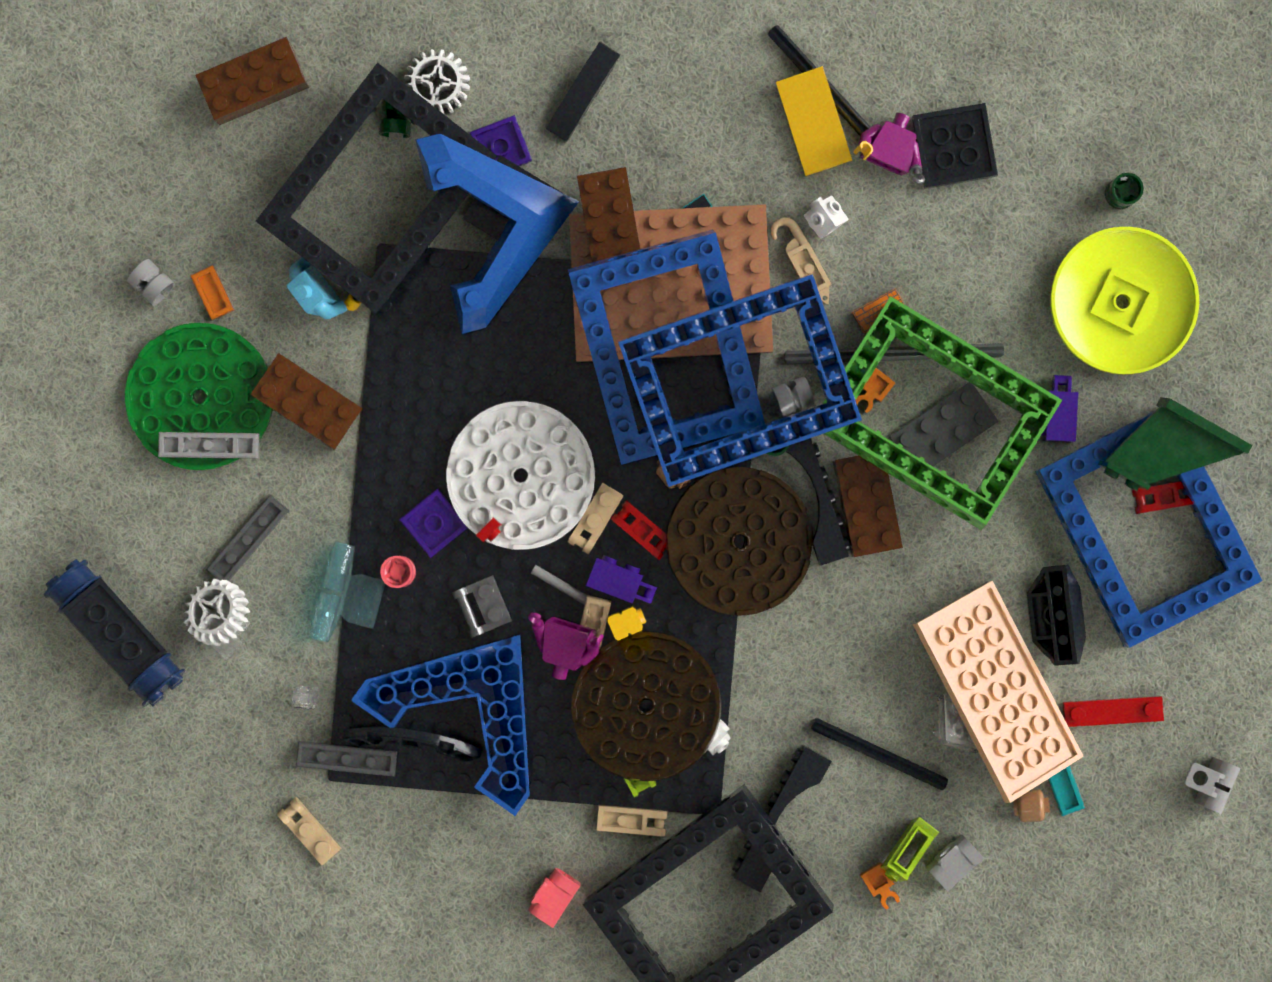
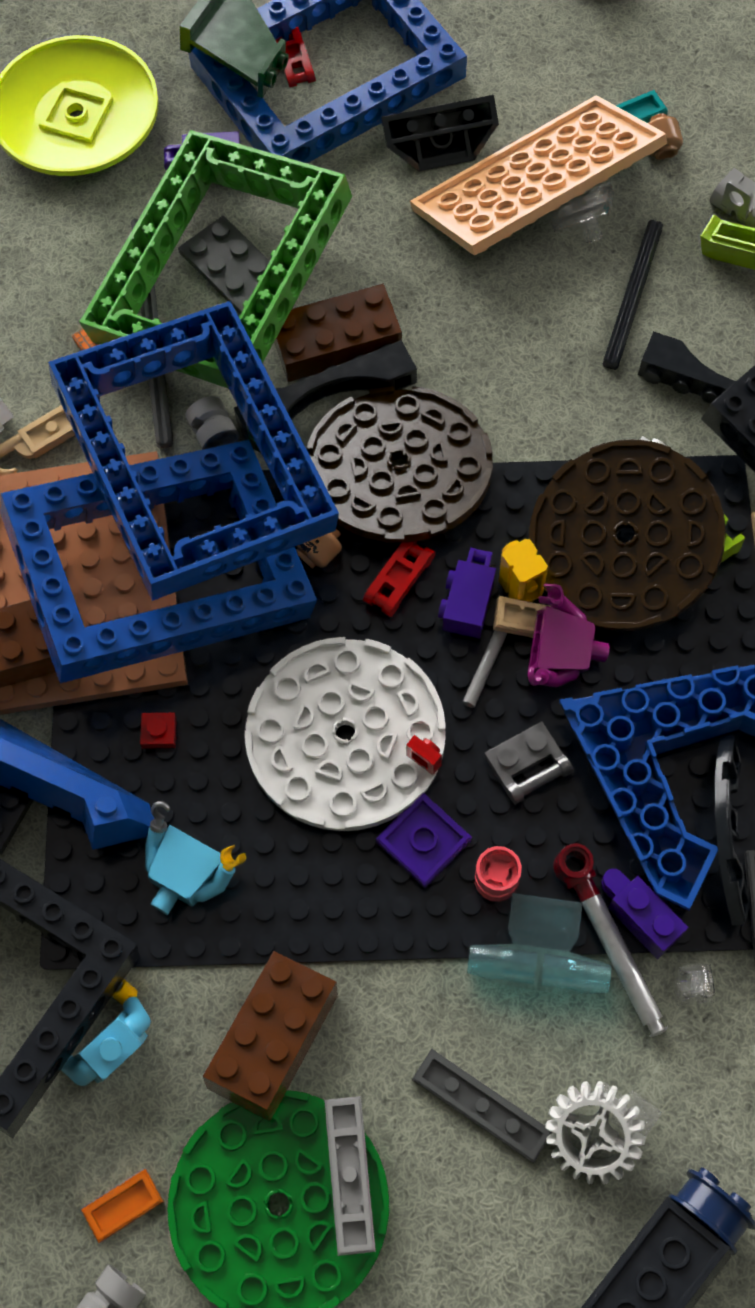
camera: 90 degrees left, 20 degrees down
(349, 644) = (608, 934): none -> flat silver piece
(359, 669) = (642, 912): none -> dark purple brick
(432, 350) = (184, 865): none -> medium azure torso
(540, 337) = (158, 730): none -> red plate
(596, 517) = (380, 627): tan plate -> none
(1113, 711) = (539, 75): red plate -> none

